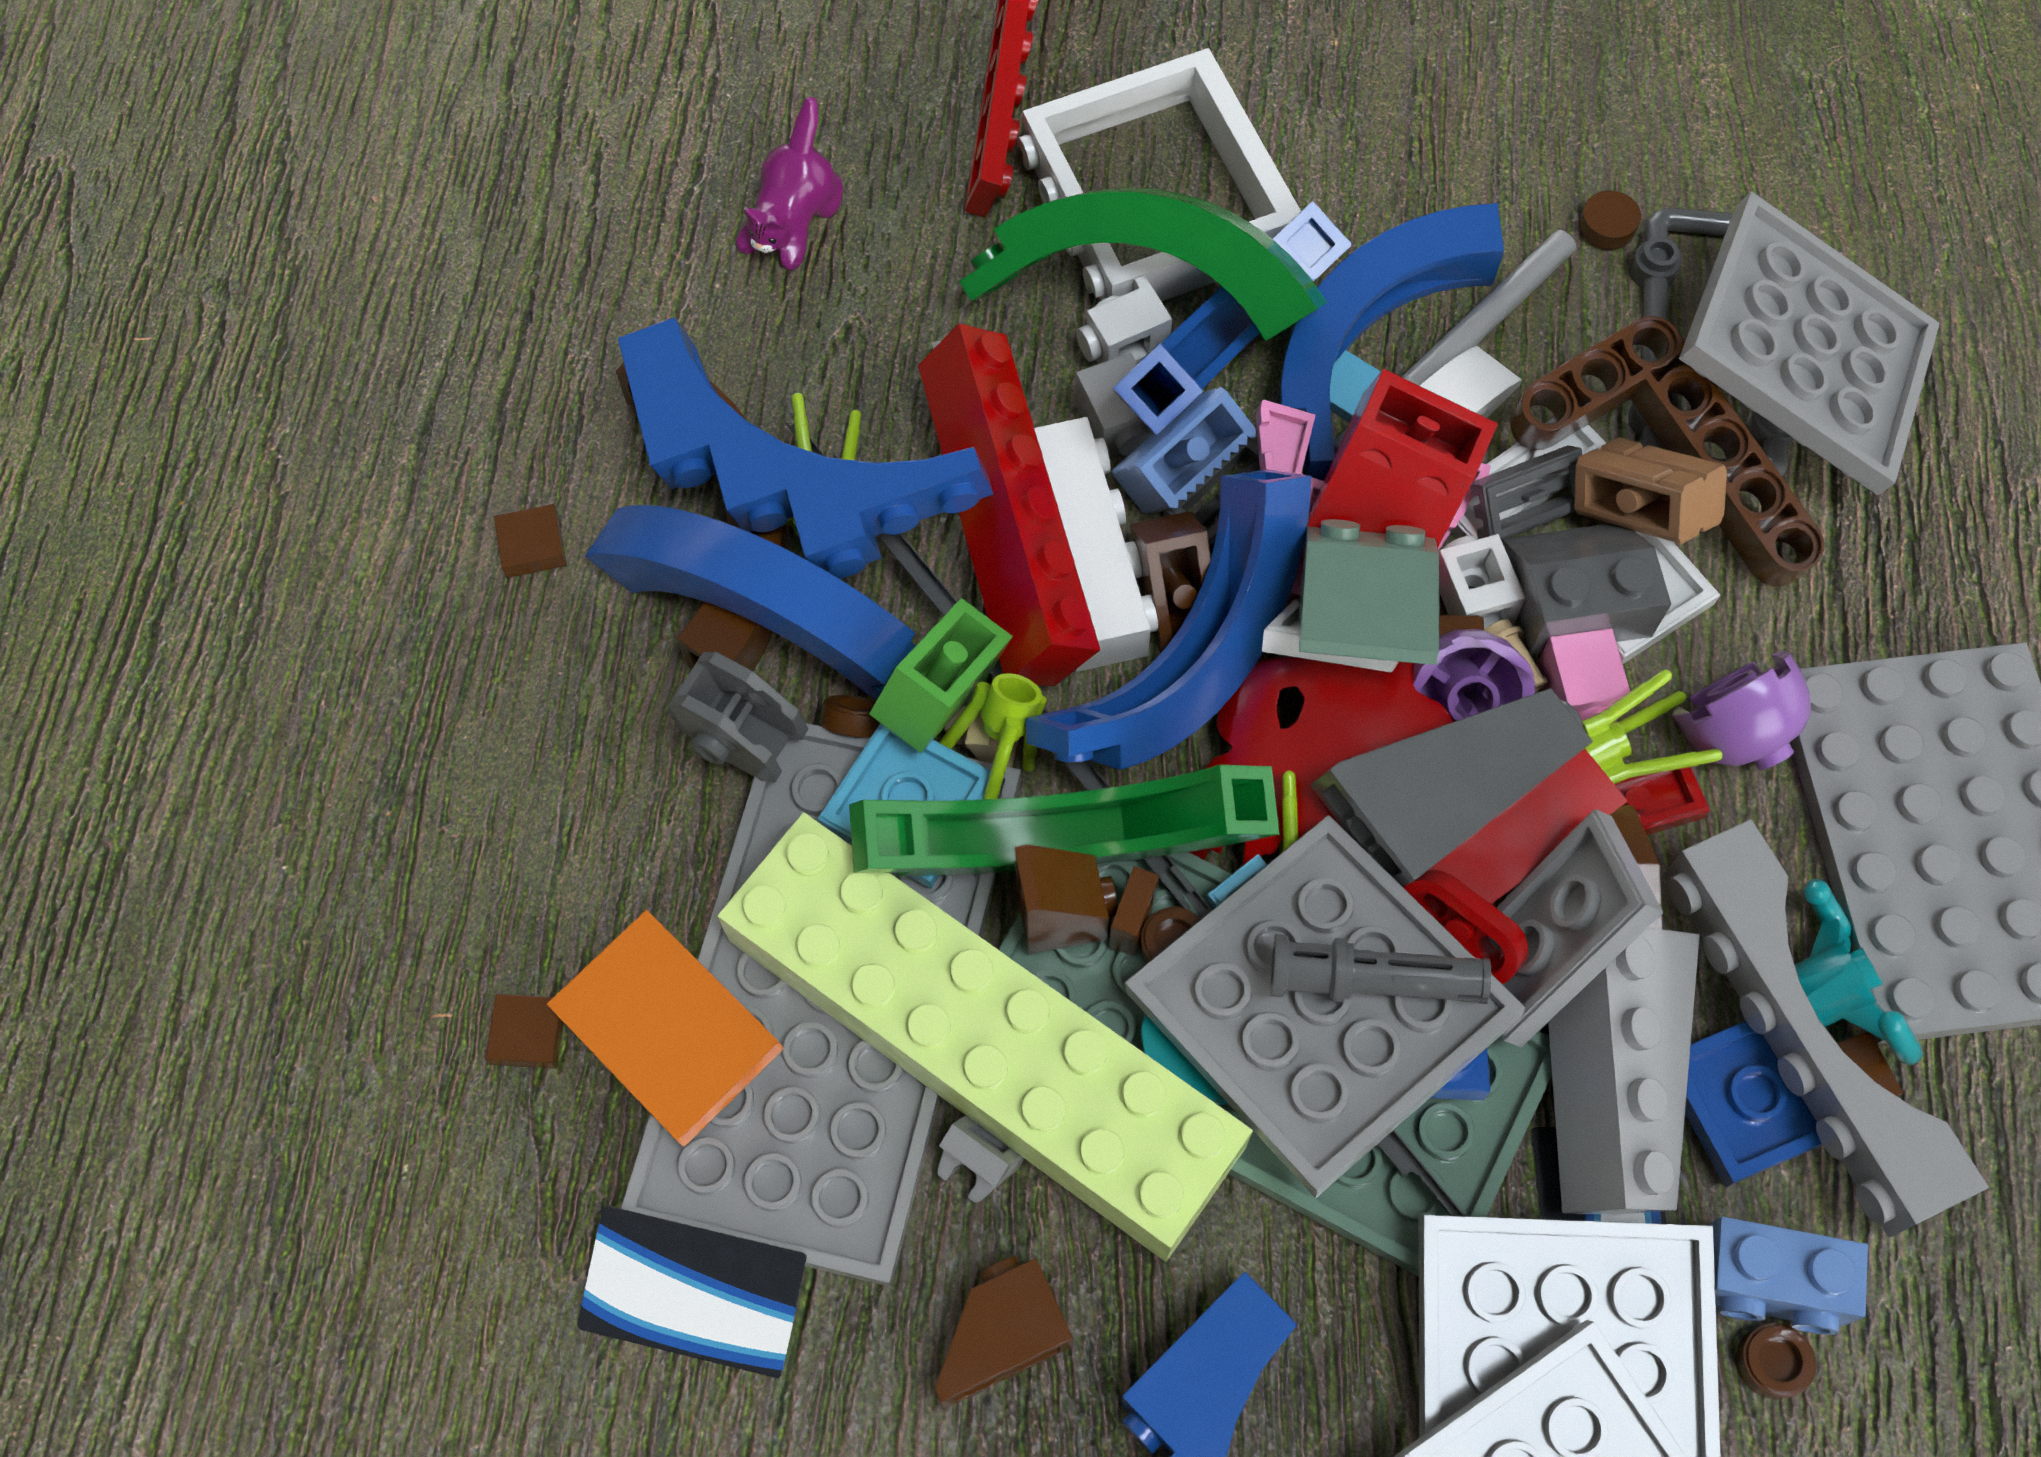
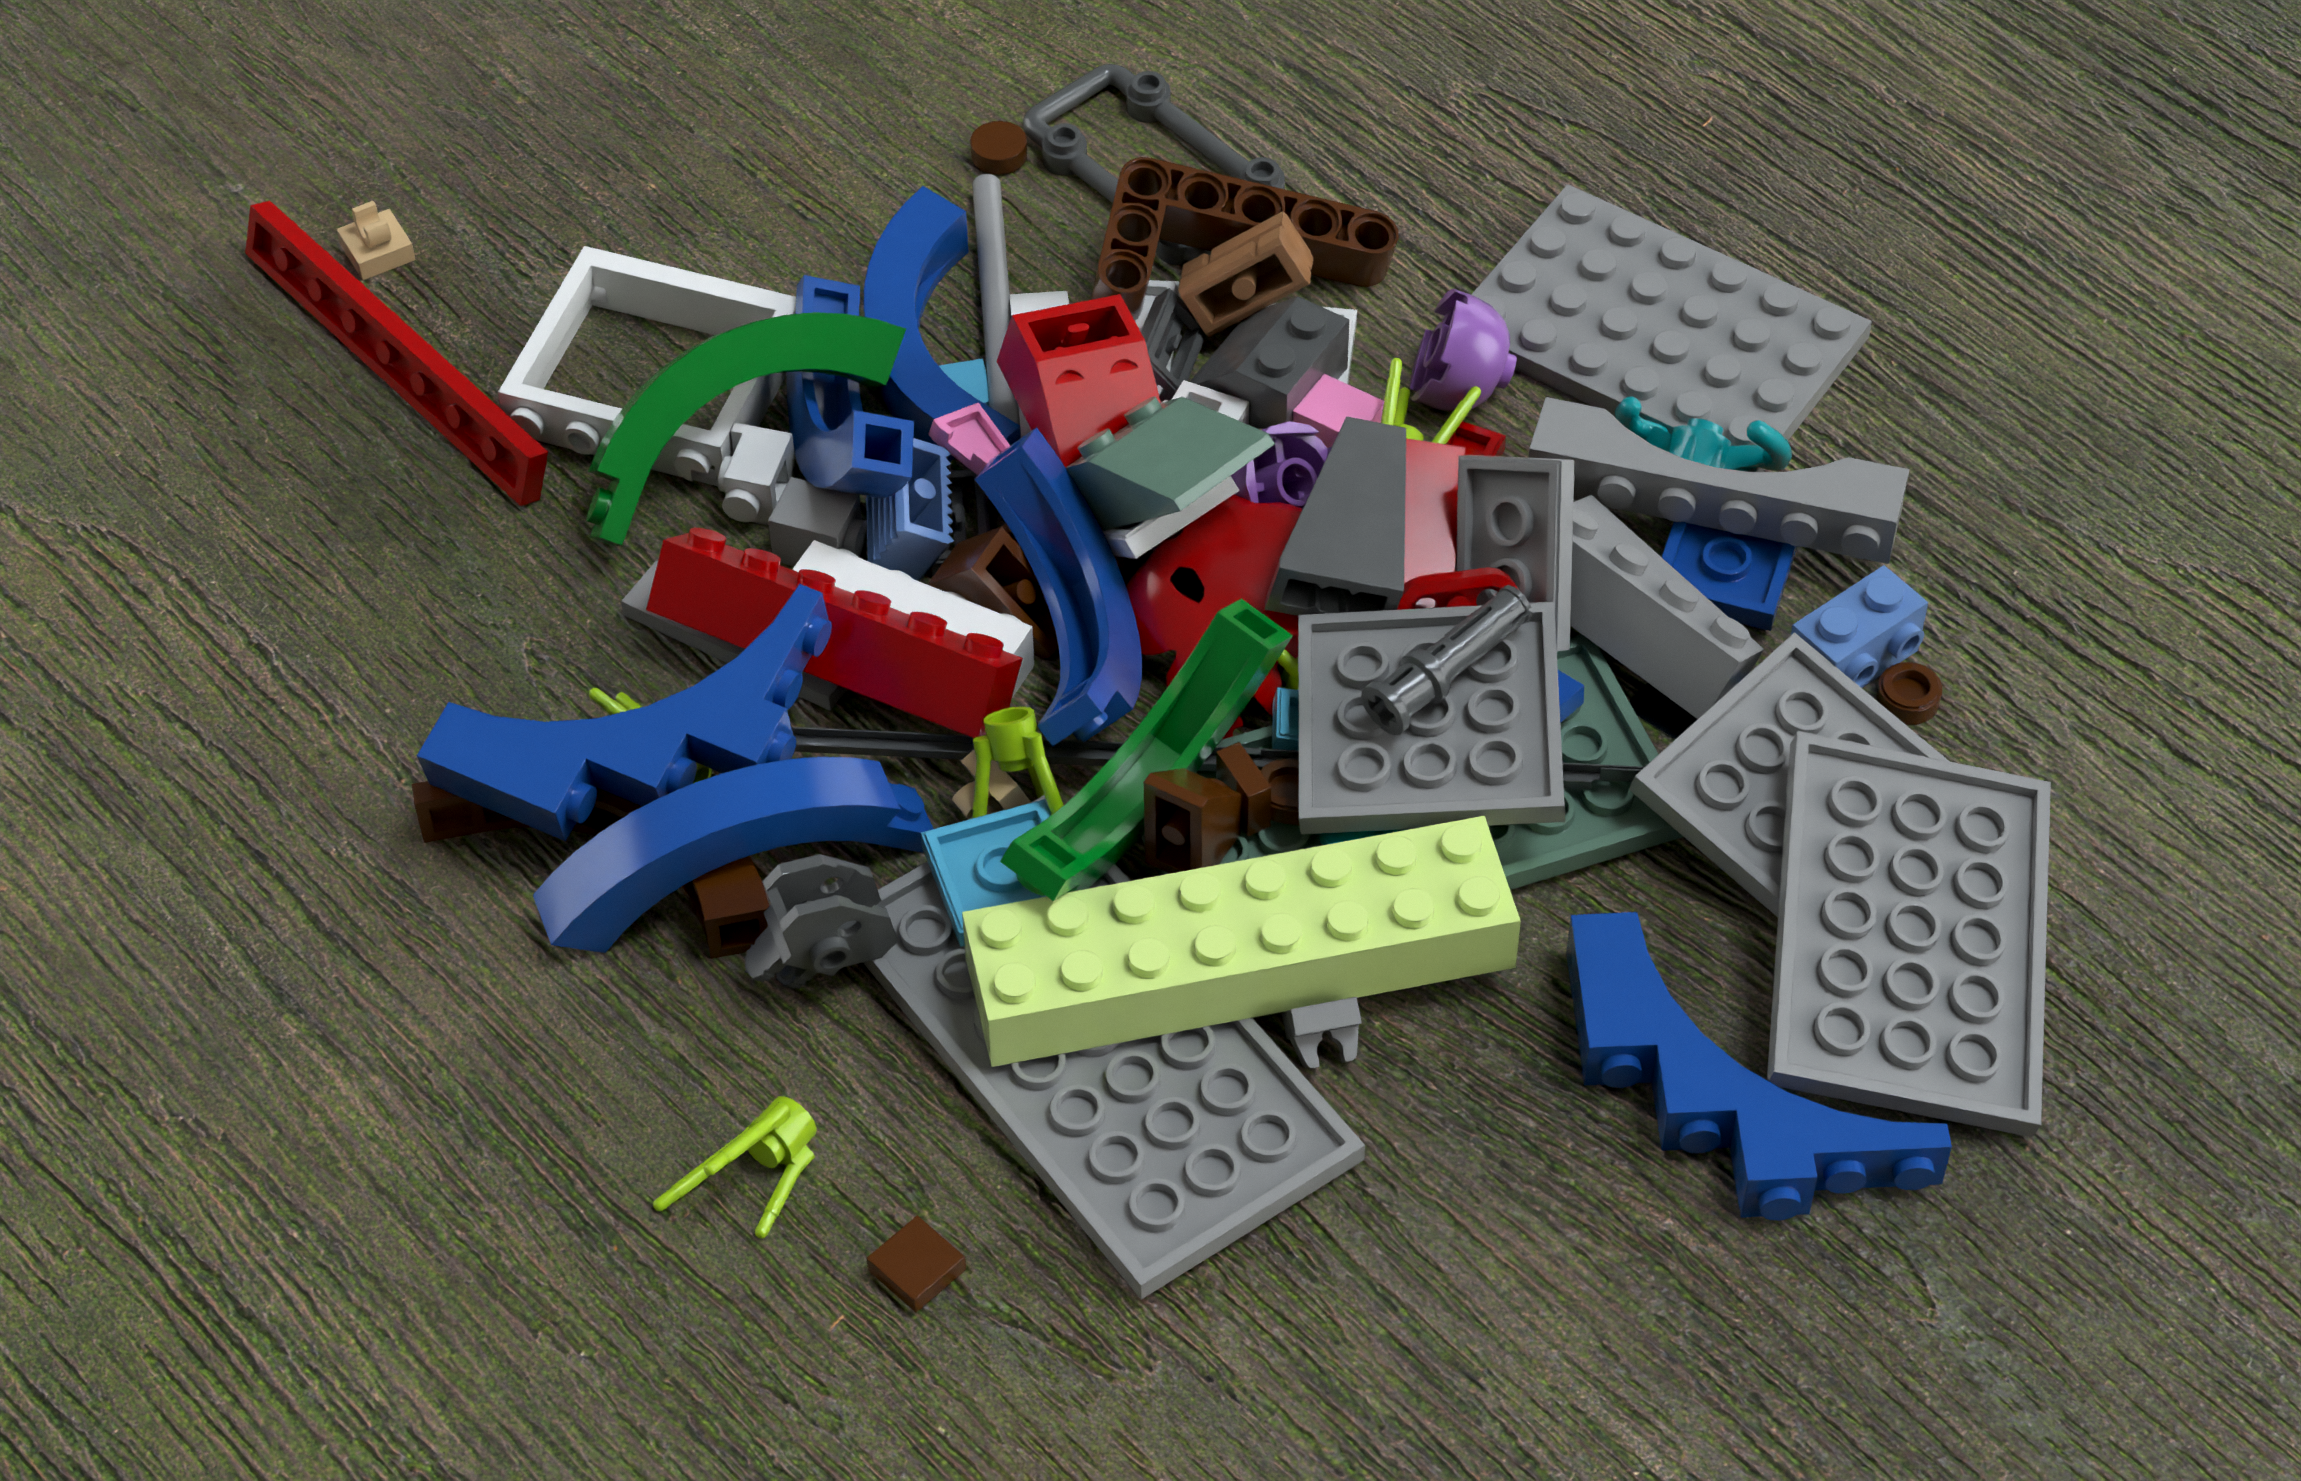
camera: 50 degrees left, 15 degrees down
(530, 540) = (482, 984): reddish brown tile -> none
(549, 840) = (771, 1139): none -> lime plant
(665, 1027) = (1021, 1147): orange tile -> none
(692, 1291) = (1242, 1285): sticker -> none
(793, 189) = (375, 592): magenta animal -> none
(849, 716) = (894, 863): reddish brown tile -> none
(940, 675) = (939, 762): bright green brick -> none
(1002, 1330) = (1467, 1101): reddish brown slope -> none
(1812, 343) = (1237, 106): light grey plate -> none

